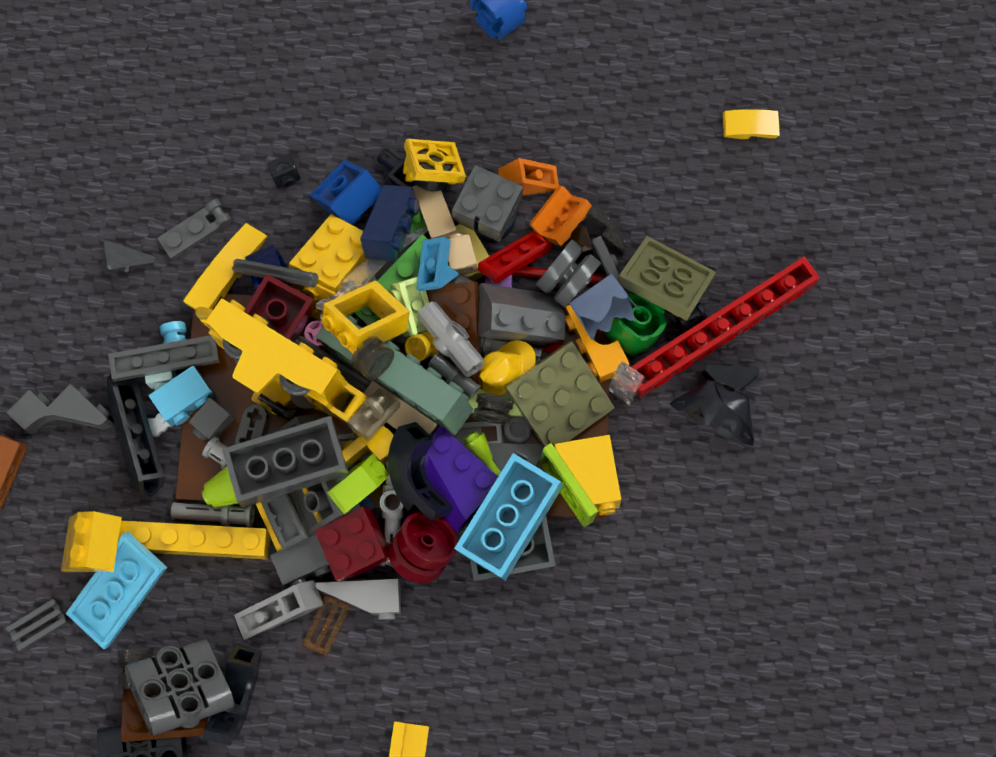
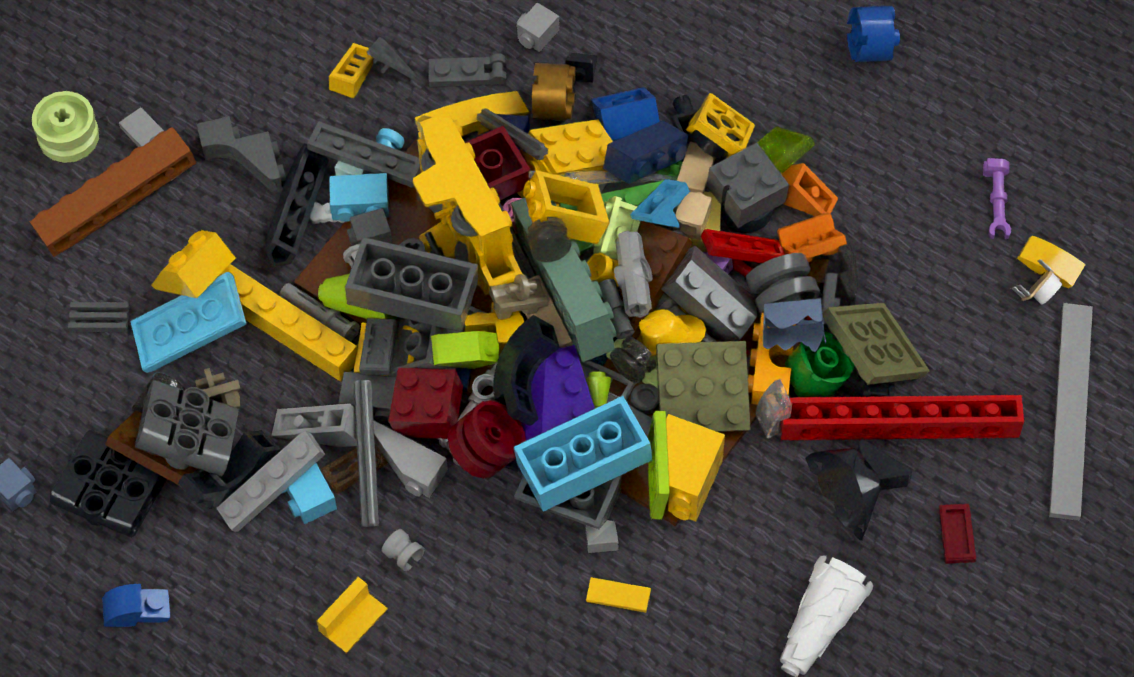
camera: 25 degrees right, 15 degrees down
(100, 299) = (347, 84): none -> yellow slope
(186, 627) = (228, 391): none -> dark tan hips
(227, 158) = (537, 27): none -> light grey brick
(273, 684) = (270, 481): none -> light grey plate
(279, 210) = (553, 91): none -> pearl gold brick
(300, 668) = (310, 496): none -> medium azure brick
(332, 613) = (366, 453): none -> dark grey axle
(412, 673) = (401, 548): none -> light grey wheel
(489, 152) = (785, 147): none -> clear neon green tile
(562, 564) = (603, 539): none -> light grey slope
(598, 604) = (618, 595): none -> yellow piece
(664, 70) = (997, 169): none -> medium lavender piece
(760, 151) = (1043, 289): none -> piece
(763, 526) = (825, 608): none -> white cone
(817, 394) = (957, 533): none -> dark red tile
(840, 241) = (1071, 412): none -> light grey tile

